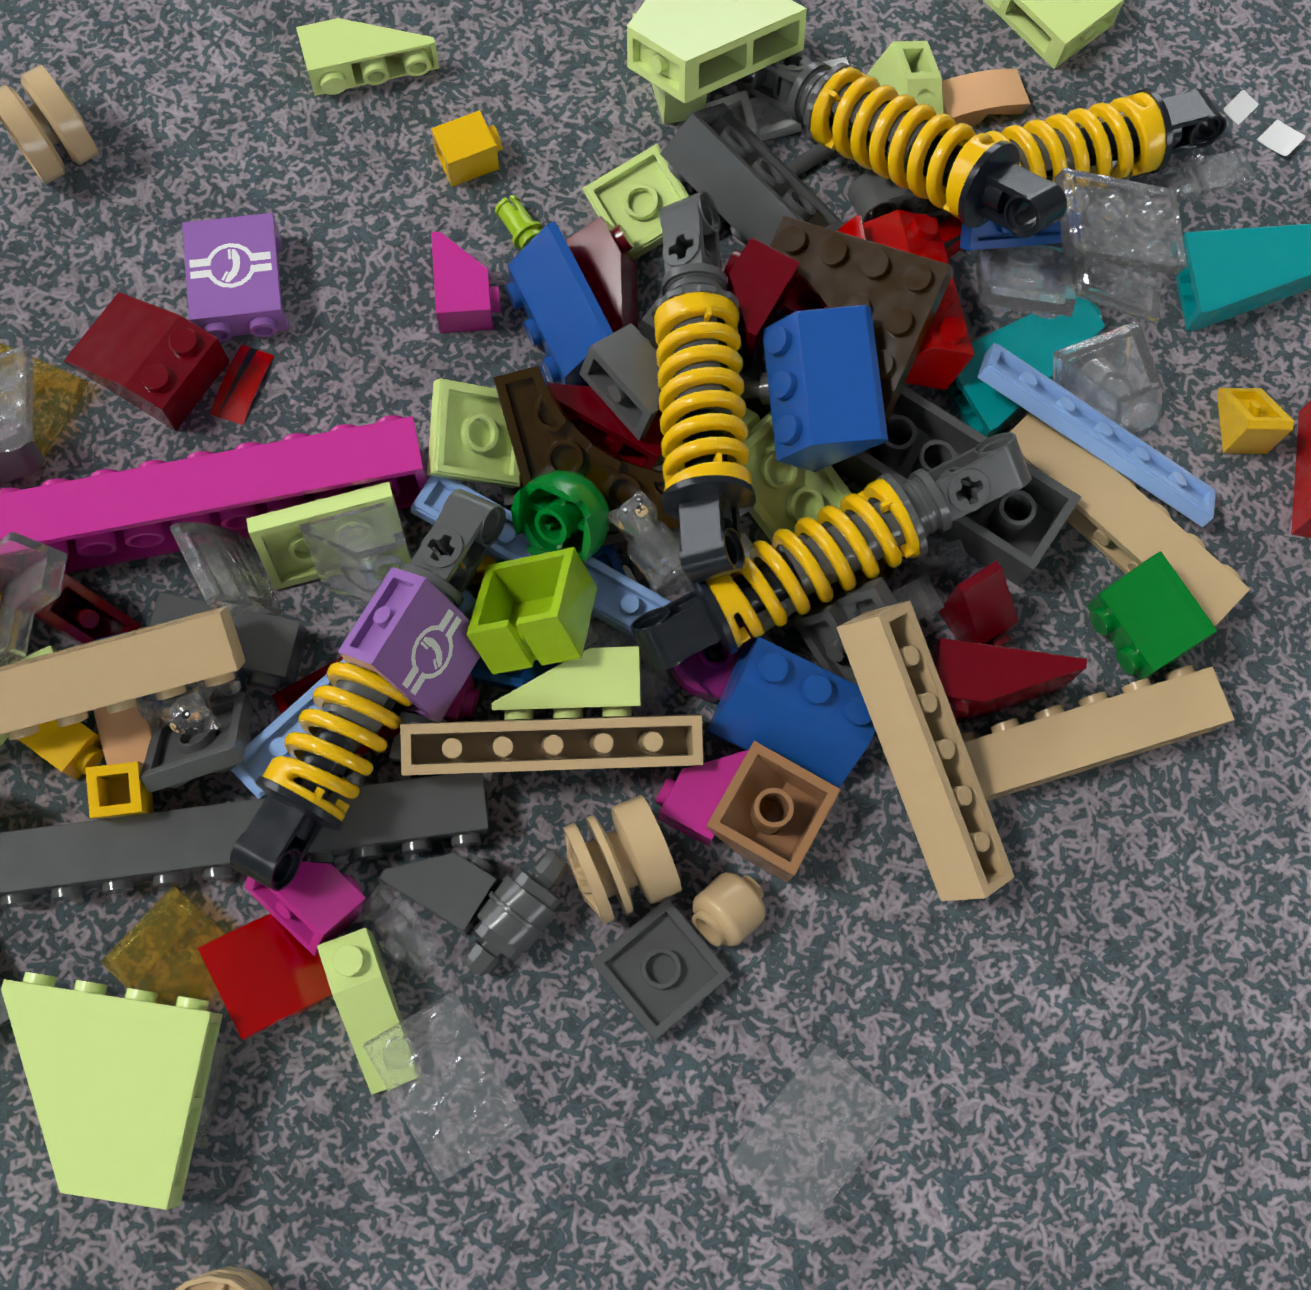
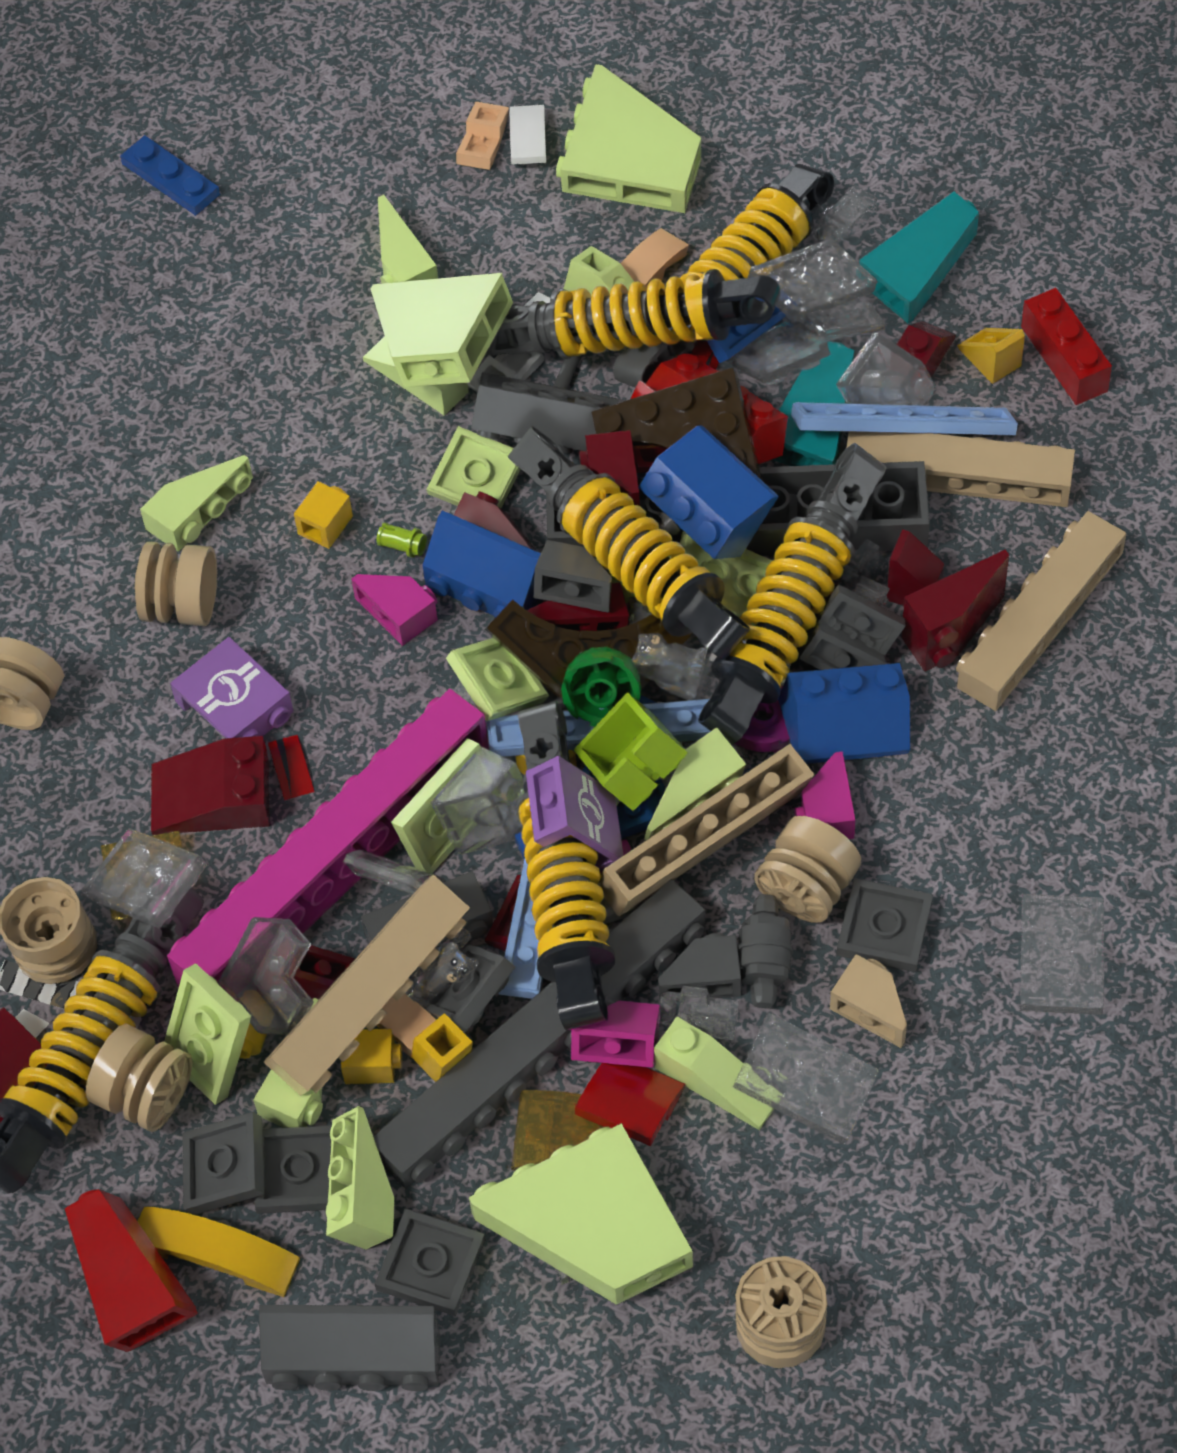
camera: 25 degrees left, 15 degrees down
(266, 125) = (170, 584): none -> tan wheel
(582, 1041) = (870, 999): none -> tan slope
(728, 909) = (899, 858): tan head -> none
(772, 811) = (882, 779): medium nougat slope -> none
(926, 752) = (949, 672): tan brick -> none
(1150, 618) = (1025, 507): green slope -> none
(1185, 367) = (926, 343): none -> dark red slope
(1277, 137) = (869, 162): white sticker -> none

